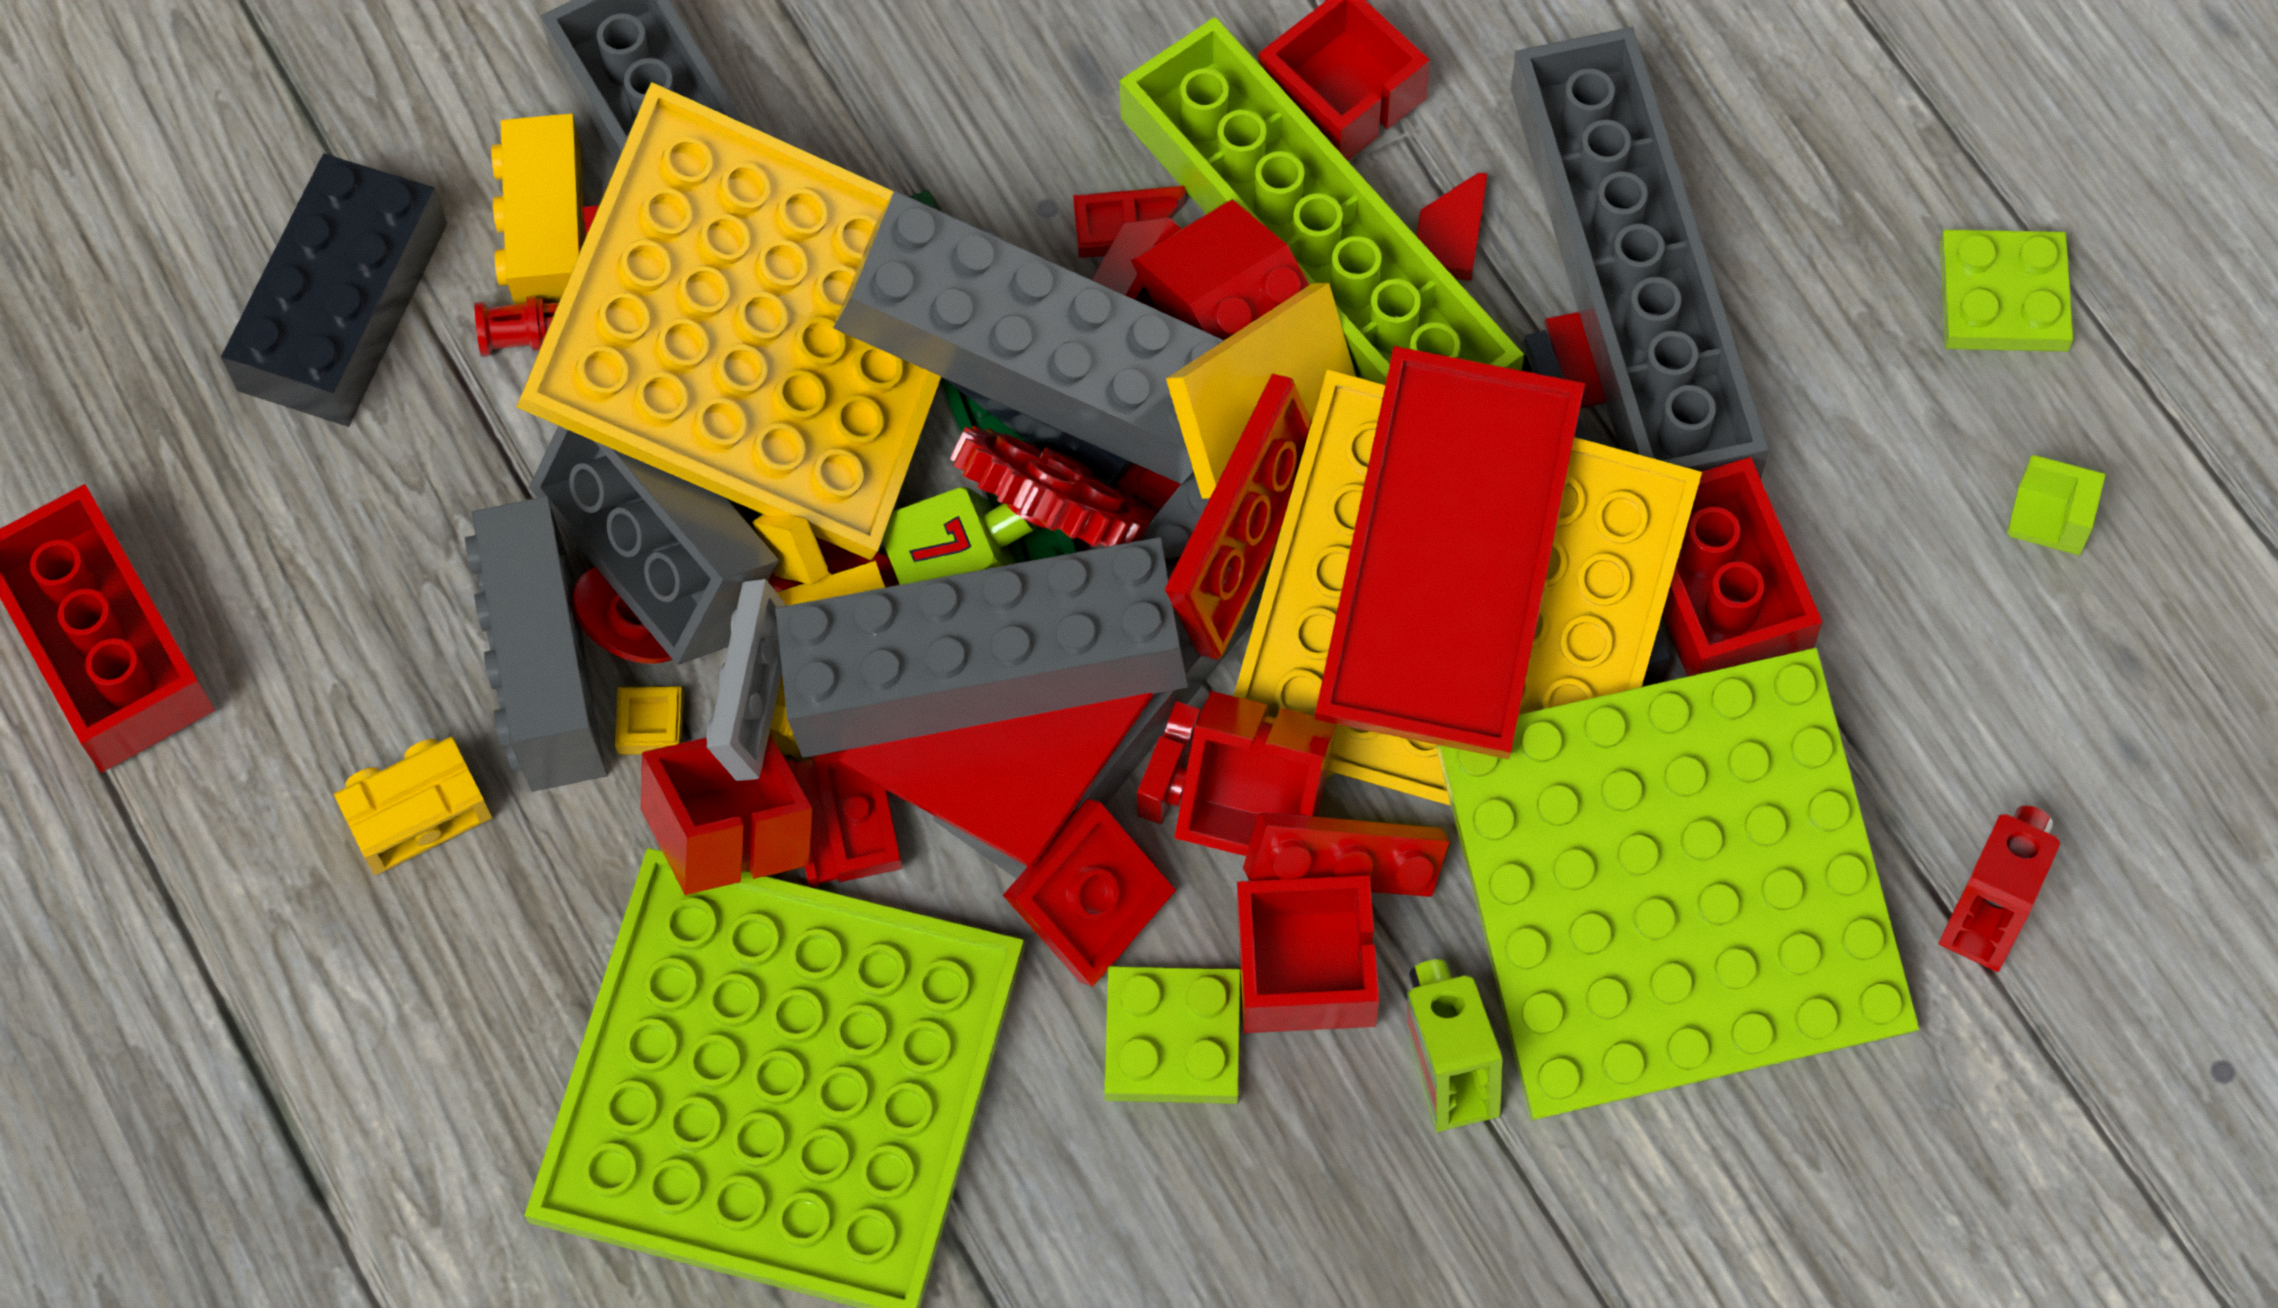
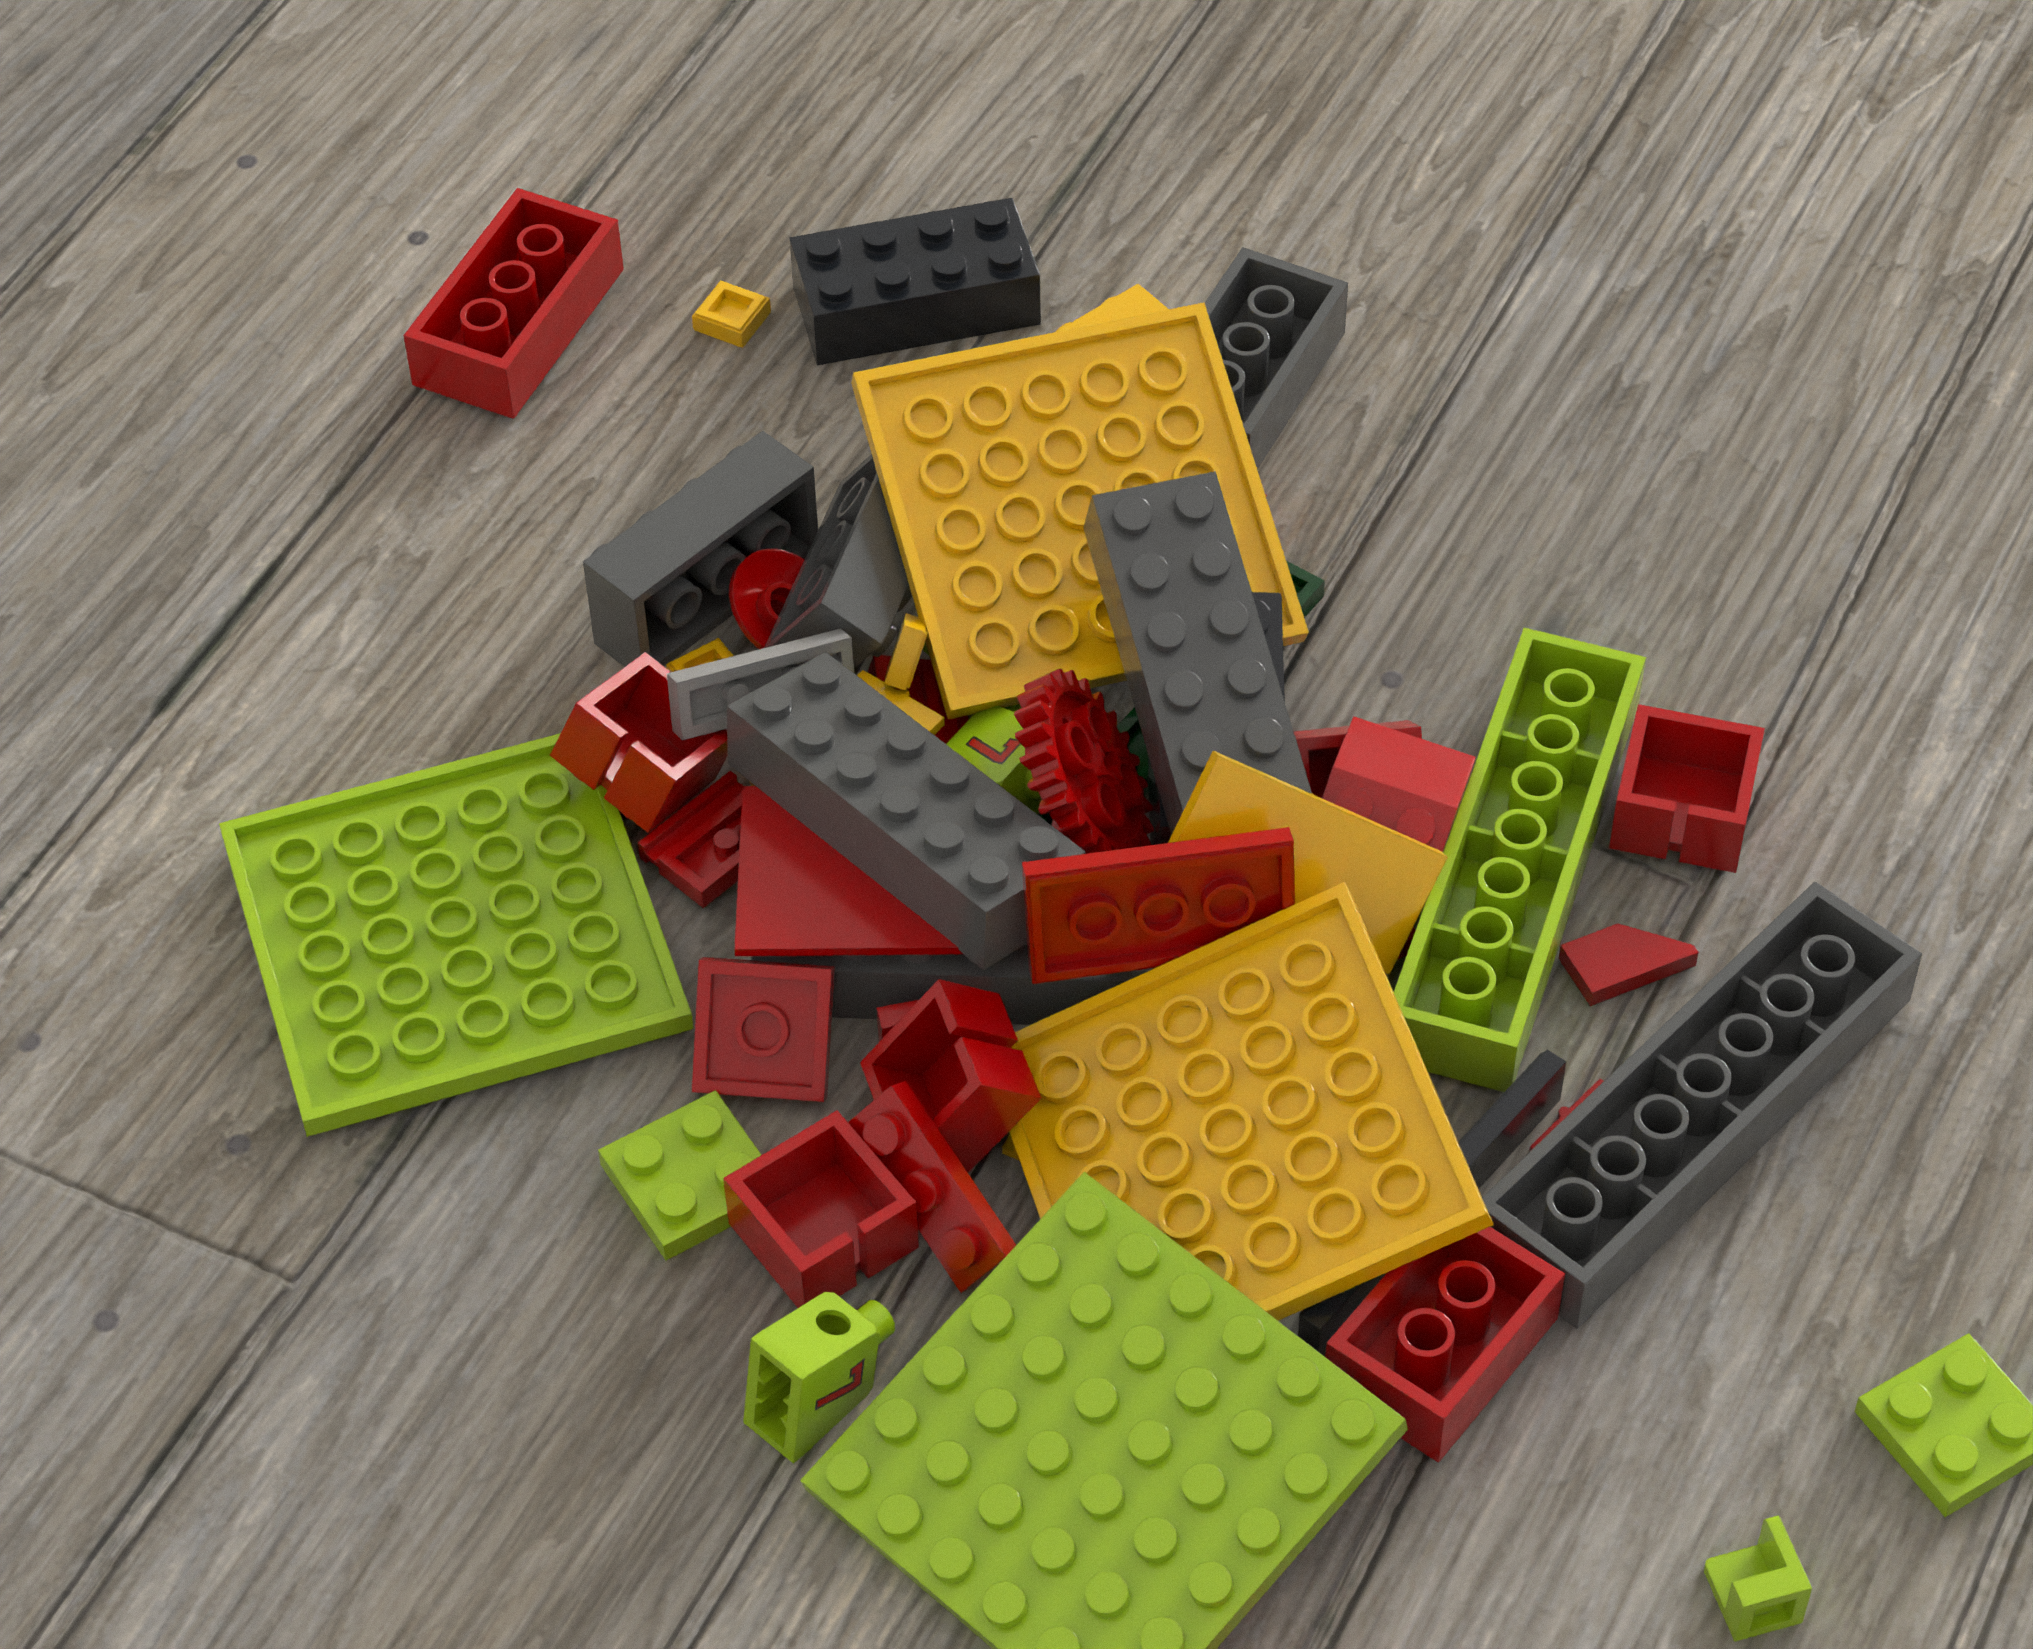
camera: 55 degrees right, 15 degrees down
(234, 459) = (731, 314): none -> yellow tile
(411, 804) = (516, 568): yellow brick -> none
(1103, 214) = (1436, 723): red tile -> none
(1450, 552) = (1250, 1068): red tile -> none

